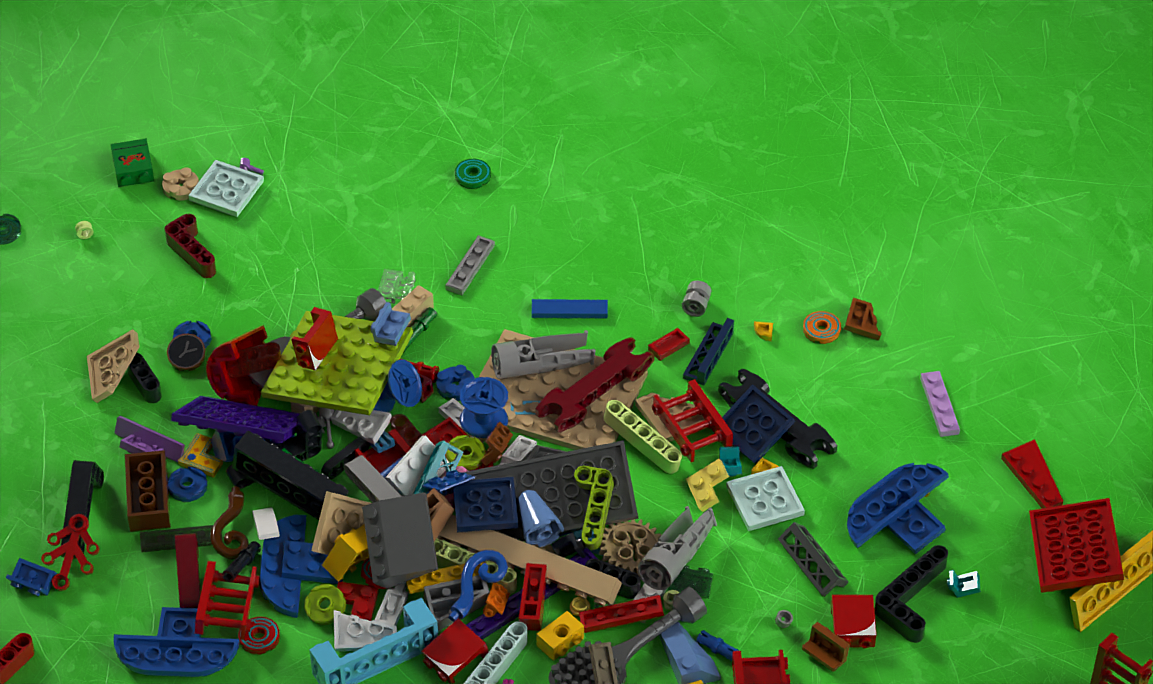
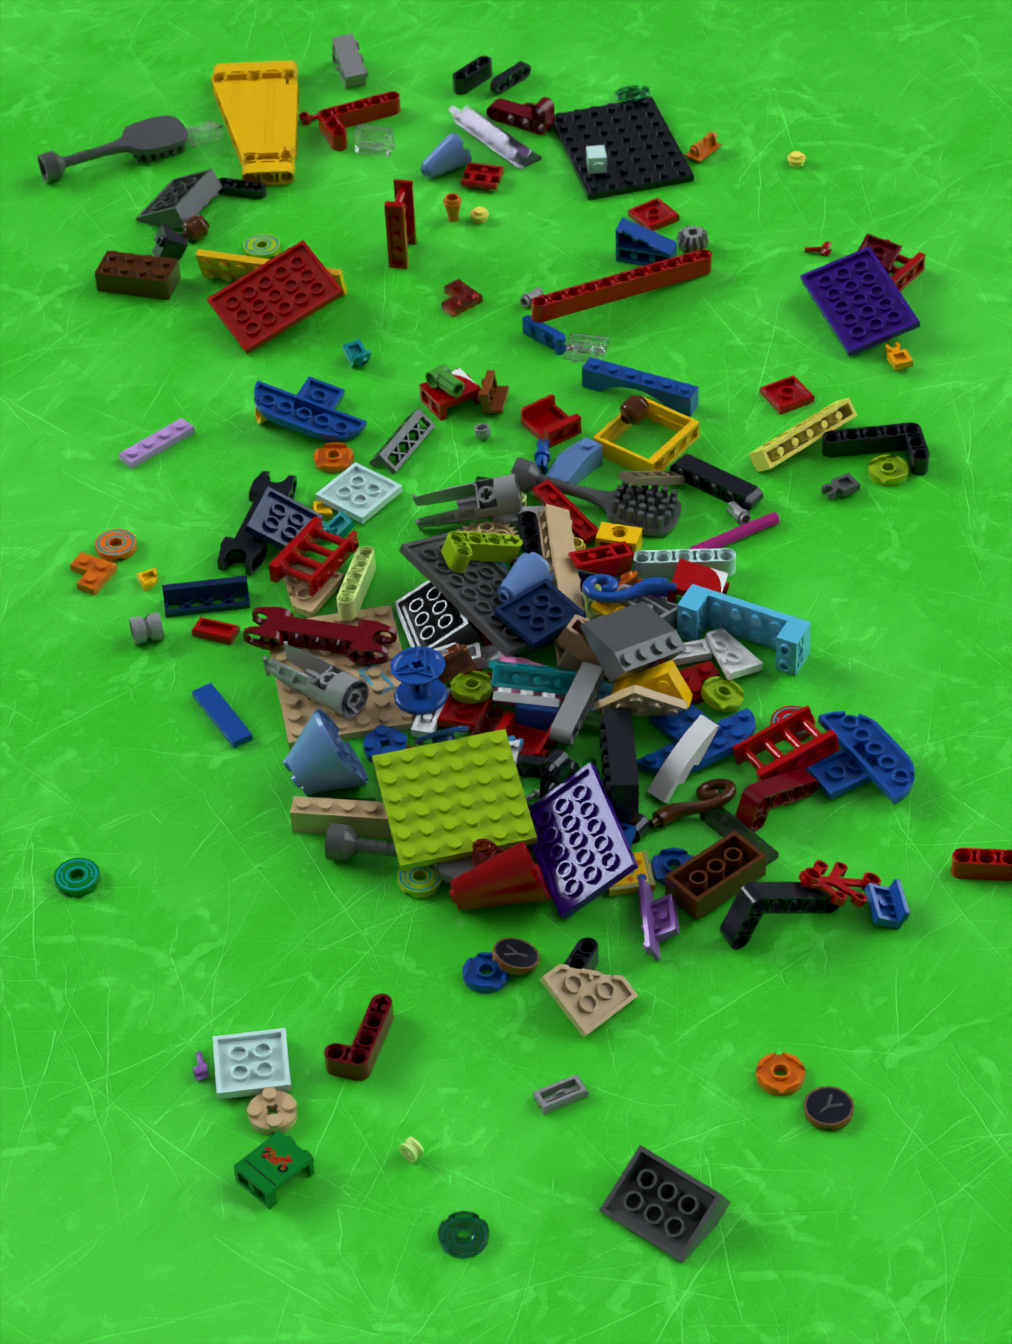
camera: 120 degrees left, 5 degrees down
(53, 335) = (562, 1096): none -> light grey tile
(244, 558) = (734, 763): black pin -> none
(318, 340) = (456, 794): red panel -> none
(389, 325) = (388, 761): medium blue bracket -> none
(391, 282) = (293, 857): clear plate -> none
(445, 484) = (537, 645): blue hinge -> none
(447, 327) = (323, 760): none -> medium blue cone
(470, 265) = (215, 814): light grey tile -> none
(702, 484) = (374, 532): light yellow plate -> none
(797, 305) = (94, 571): none -> orange plate
(827, 516) = (343, 459): none -> orange tile
(860, 604) = (443, 378): none -> bright green piece
(862, 320) = (87, 522): dark orange wing -> none
(892, 599) = (386, 380): black beam -> none
(1033, 473) = (198, 366): red wing -> none

